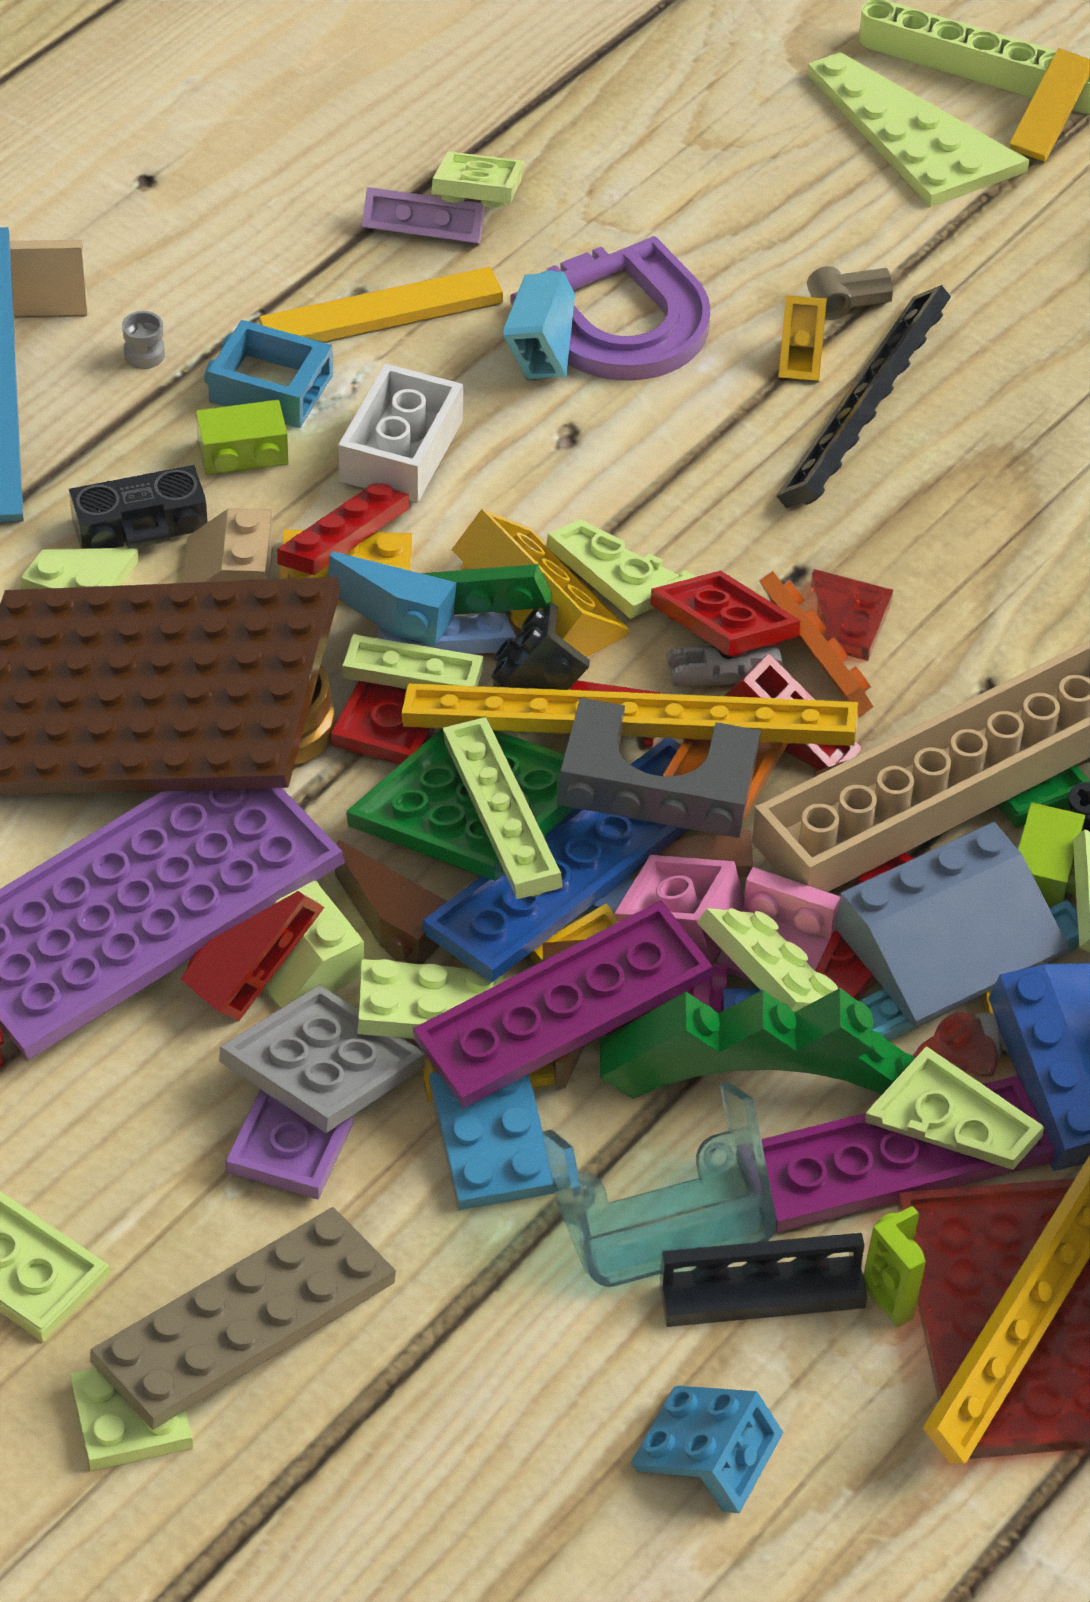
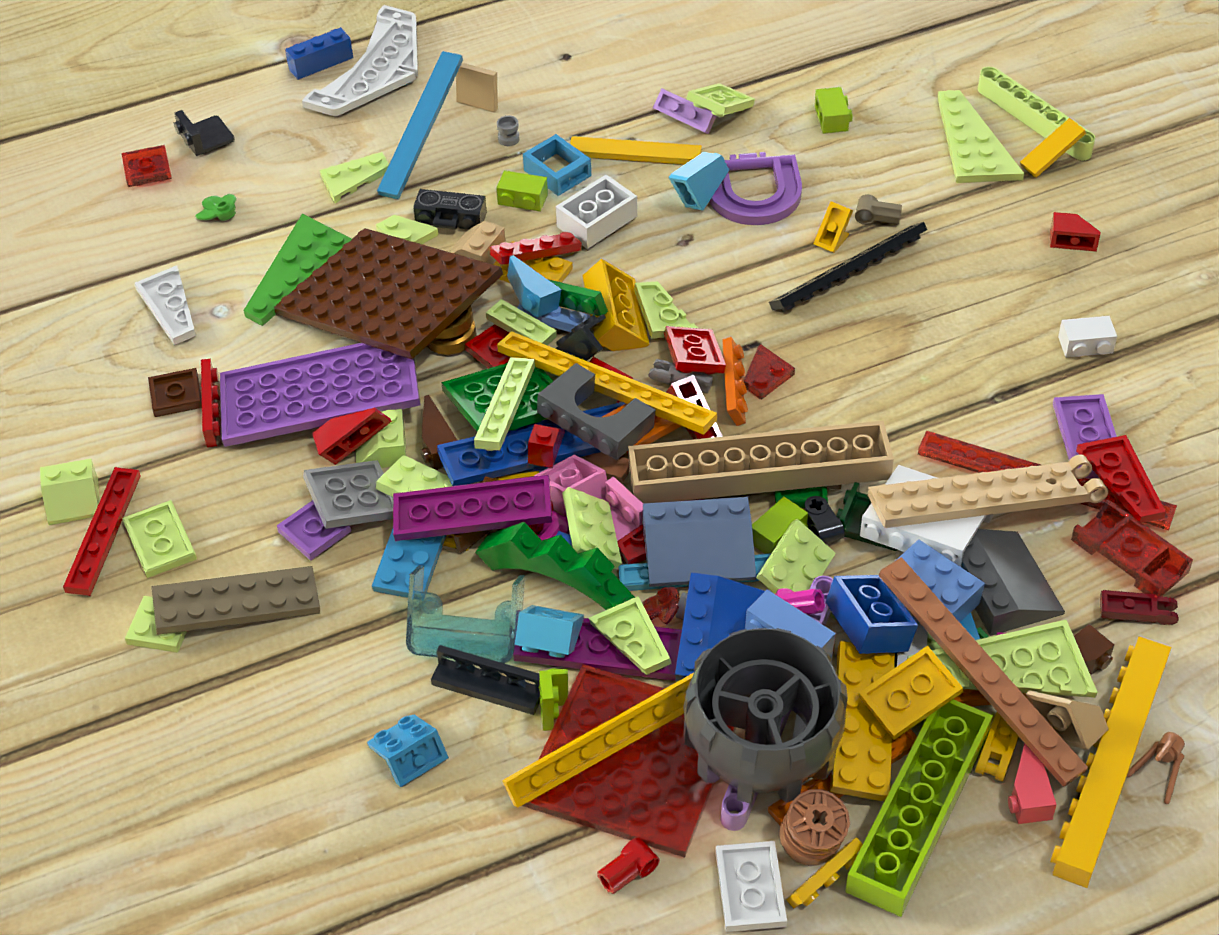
camera: 30 degrees right, 0 degrees up
(605, 854) = (544, 445): none -> red slope
(664, 143) = (832, 110): none -> lime brick
(821, 1158) = (548, 630): none -> medium azure slope

